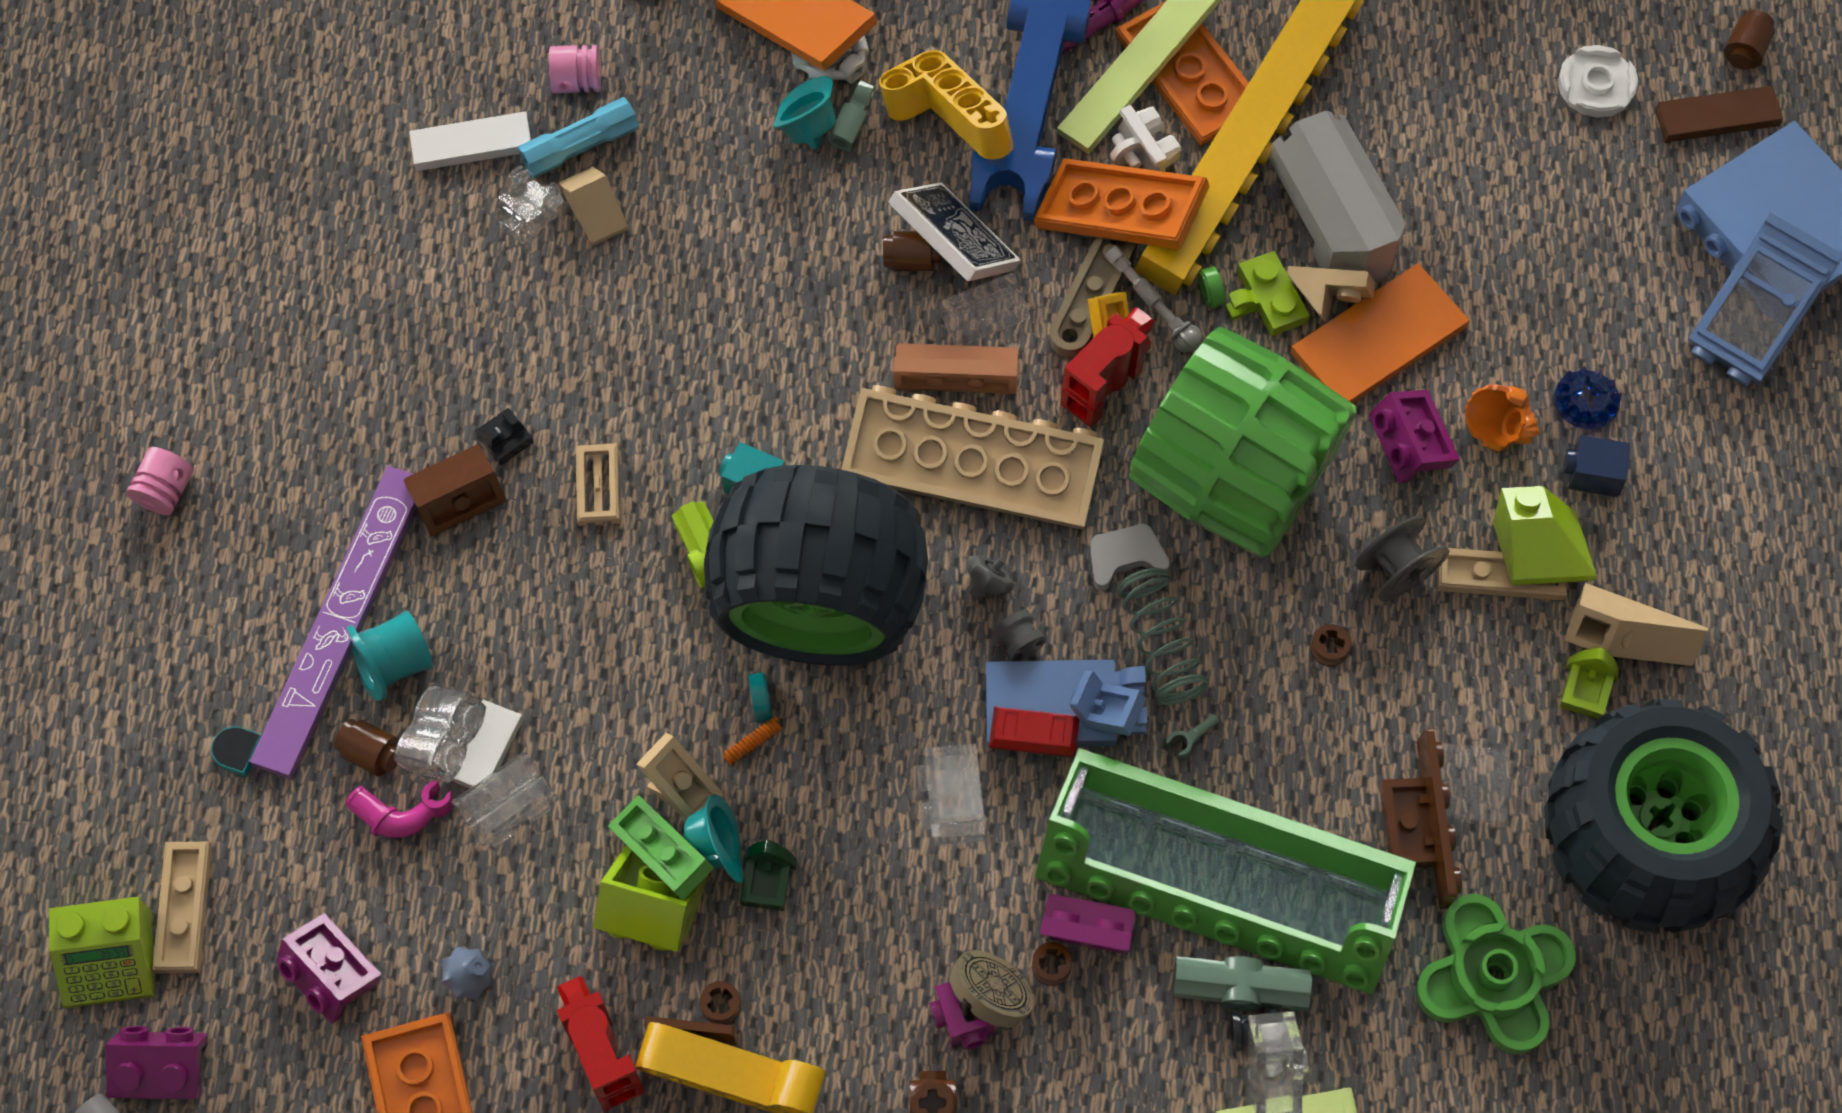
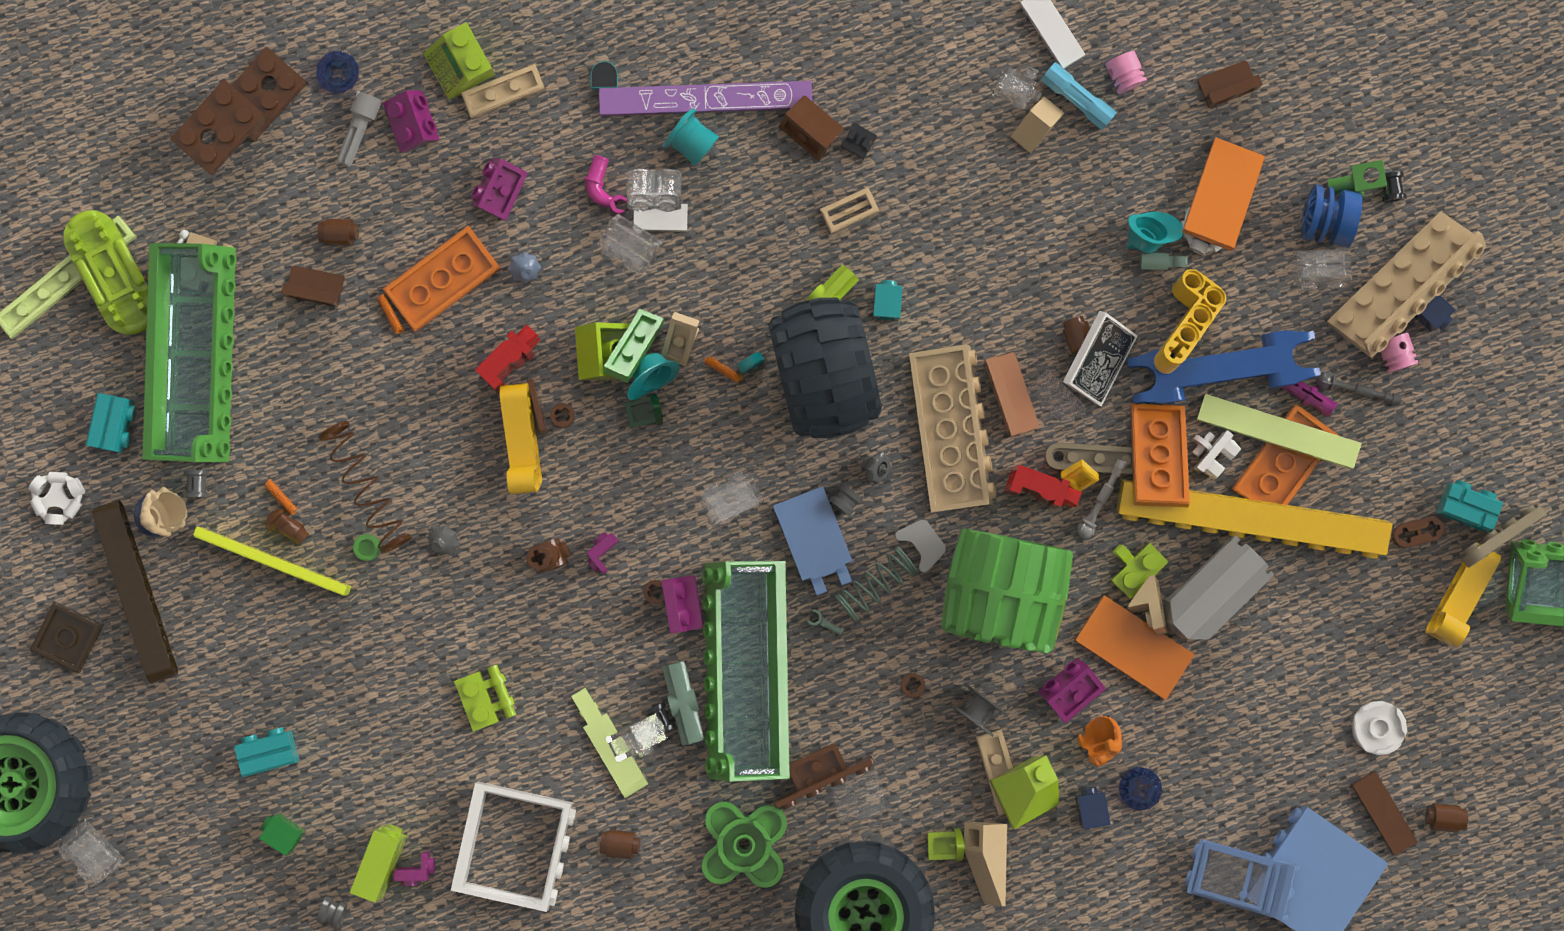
camera: 65 degrees right, 20 degrees up
(367, 746) = (633, 151): reddish brown brick -> none
(992, 988) = (624, 564): dark tan tile -> none
(1034, 731) = (788, 531): red tile -> none
(1106, 705) = (816, 567): medium blue bracket -> none
(1211, 287) = (1125, 532): bright green tile -> none

